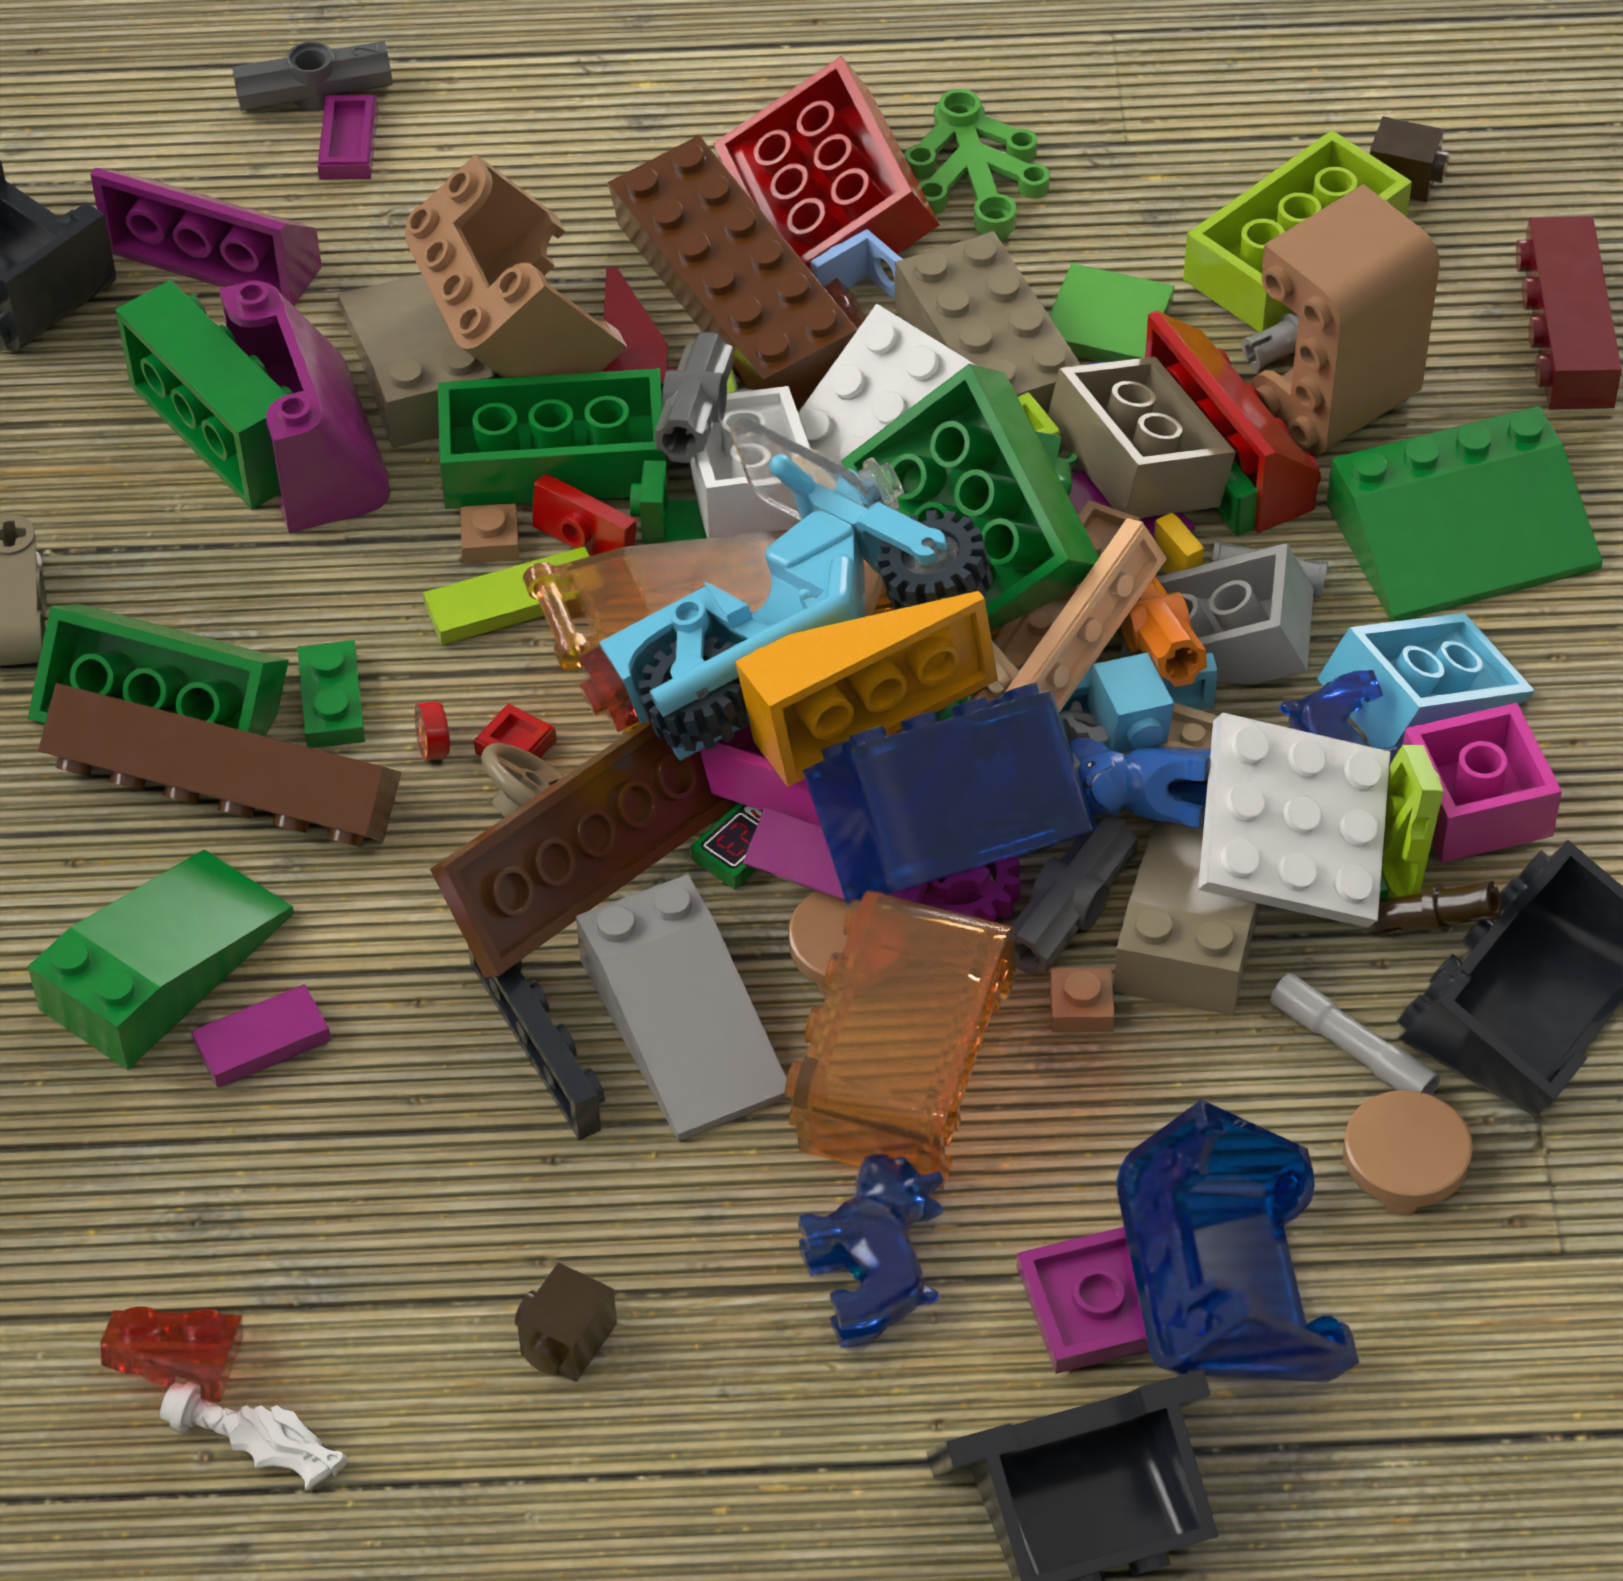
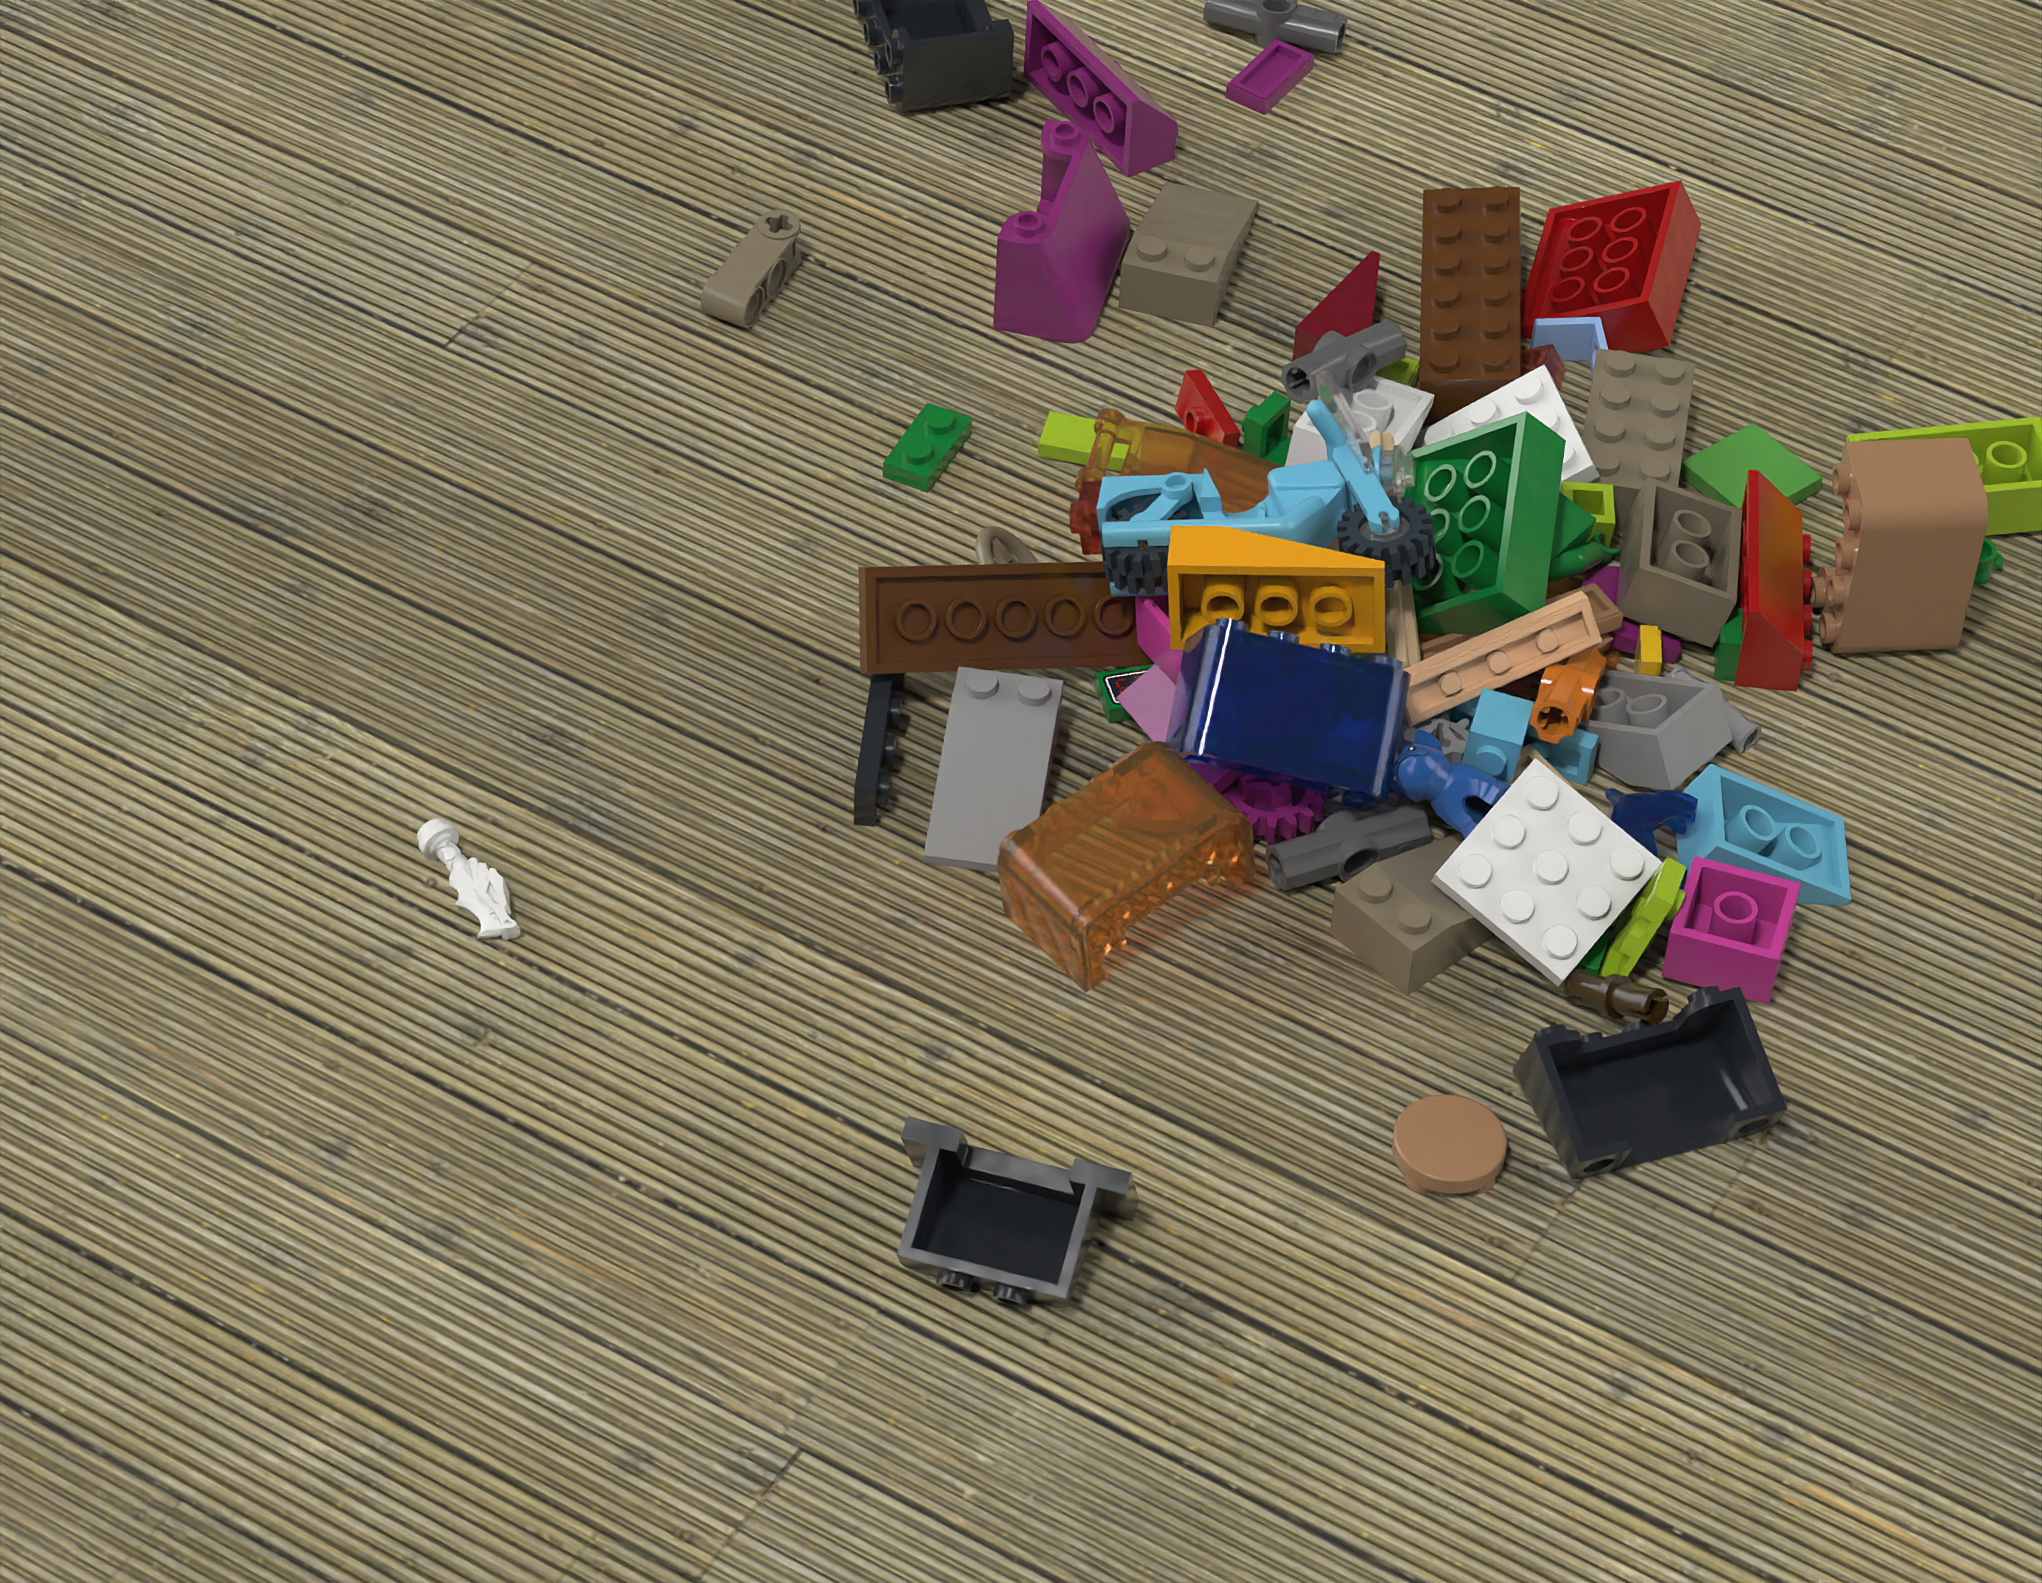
camera: 30 degrees right, 5 degrees down
(153, 955) = (657, 550): green slope -> none
(157, 669) = (803, 379): green slope -> none
(172, 1344) = (465, 800): clear red wing -> none
(203, 387) = (998, 177): green brick -> none
(221, 763) = (803, 448): reddish brown brick -> none
(261, 1035) = (687, 641): magenta tile -> none
(432, 730) = (974, 504): red tile -> none
(486, 266) = (1264, 212): medium nougat windscreen -> none
(489, 533) = (1137, 395): medium nougat plate -> none
(517, 729) = (1040, 538): red tile -> none
(565, 1322) = (735, 925): dark brown brick -> none
(572, 426) = (1227, 335): green brick -> none
(873, 1244) = (994, 990): clear blue animal -> none
(964, 117) = (1759, 278): bright green plant -> none
(1082, 999) = (1296, 923): medium nougat plate -> none
(1084, 1299) = (1127, 1114): magenta plate -> none
(1213, 1255) = (1242, 1127): clear blue windscreen -> none
(1324, 1017) = (1468, 1028): light grey piece -> none
(1463, 514) = (1905, 746): green slope -> none

